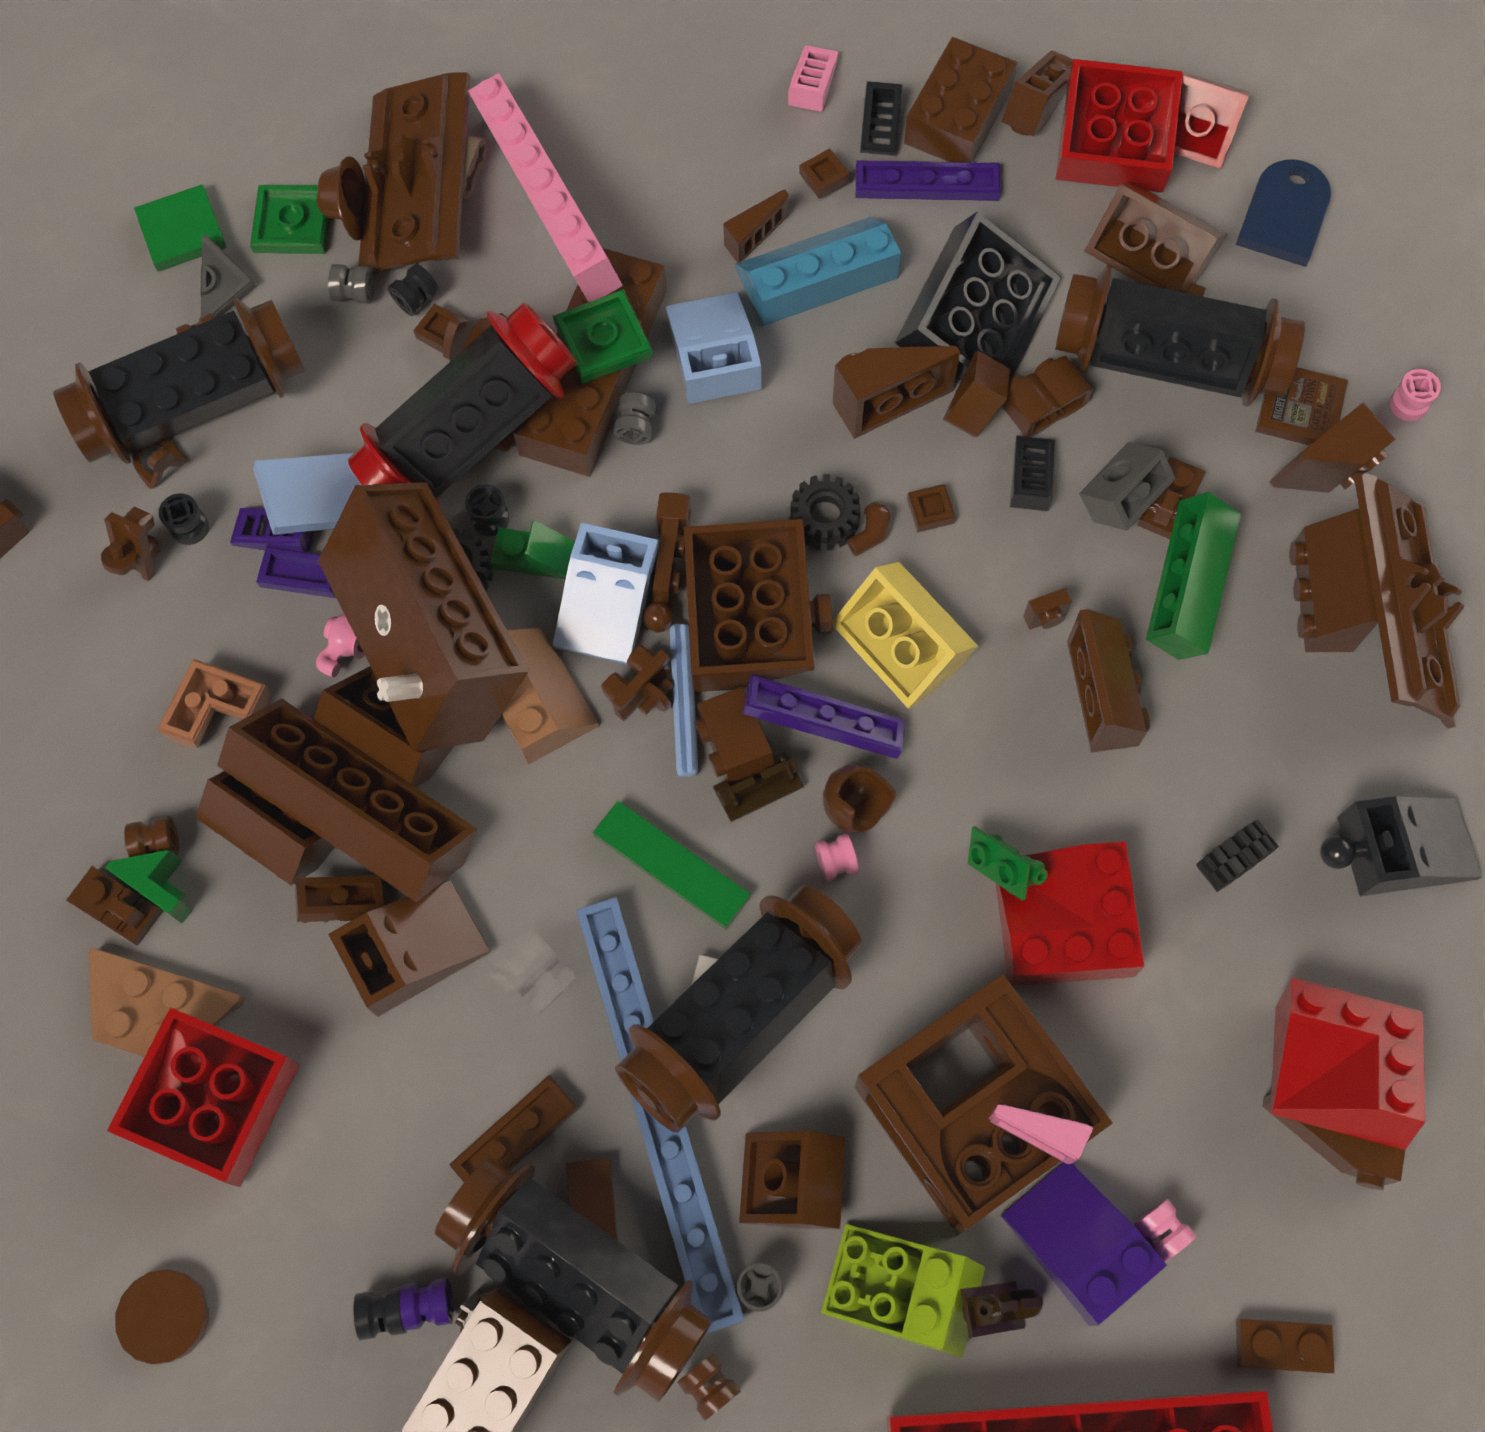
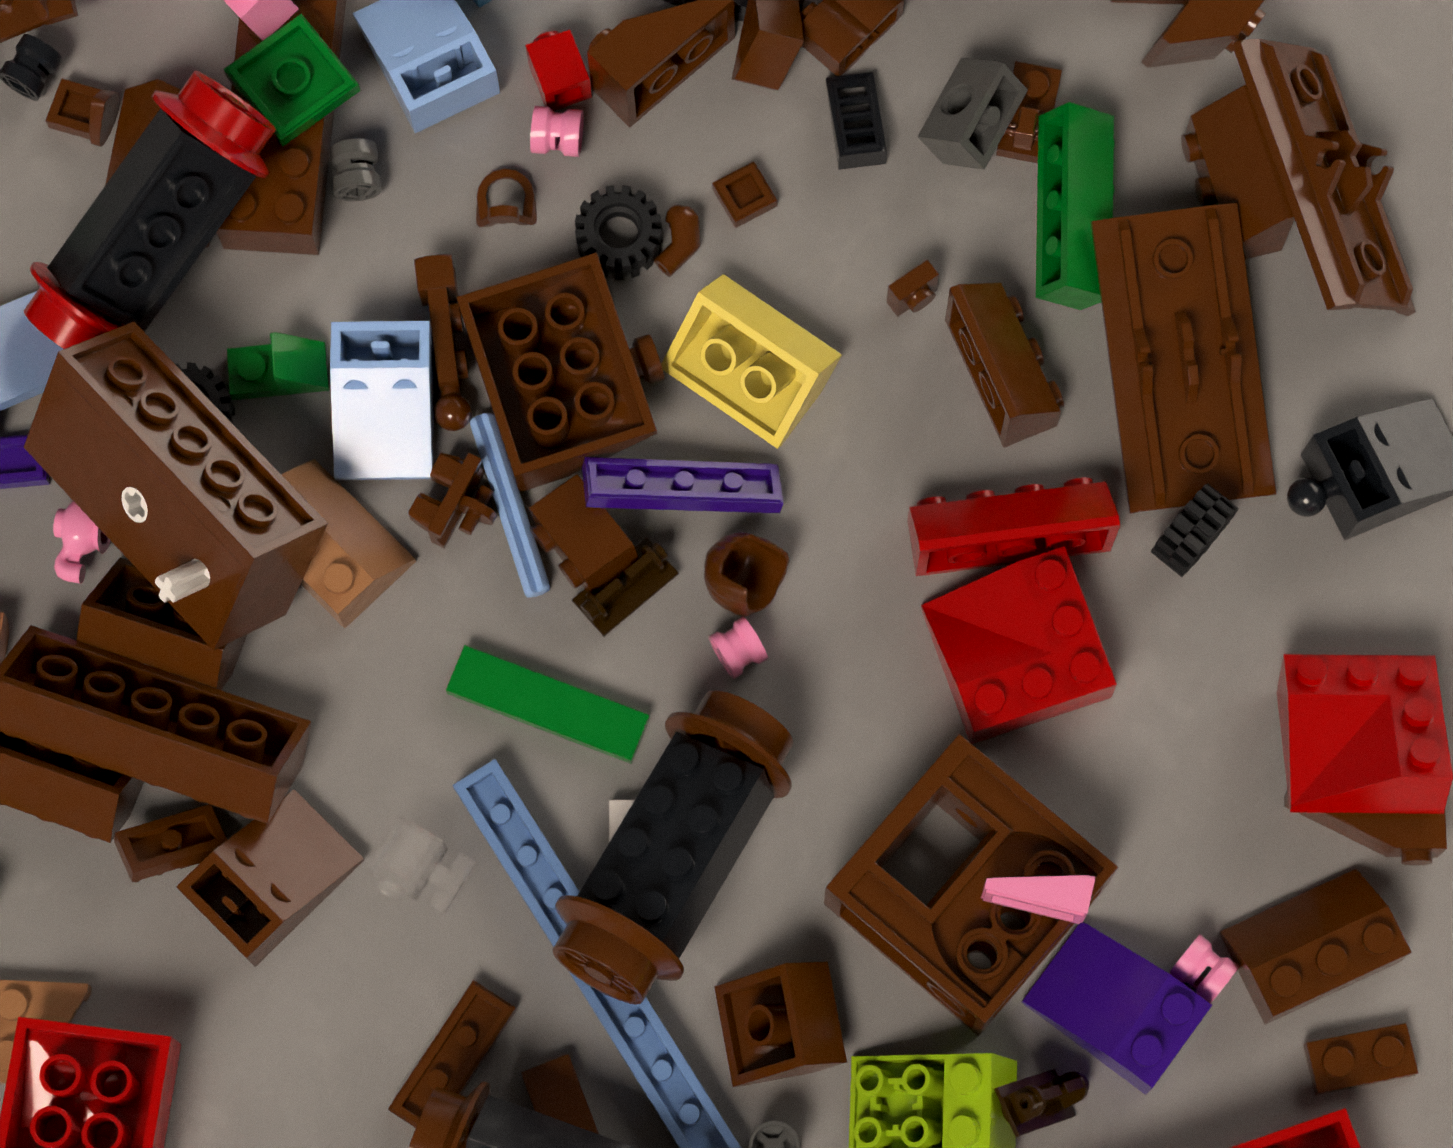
camera: 15 degrees left, 5 degrees up
(481, 503) = (203, 320): black wheel -> none
(740, 475) = (505, 213): none -> reddish brown piece
(797, 426) = (557, 131): none -> bright pink wheel
(810, 381) = (558, 69): none -> red brick
(1004, 864) = (931, 607): green hinge -> none
(1080, 815) = (1012, 526): none -> red slope
(1257, 713) = (1183, 356): none -> reddish brown hinge
(1266, 1234) = (1315, 945): none -> reddish brown slope

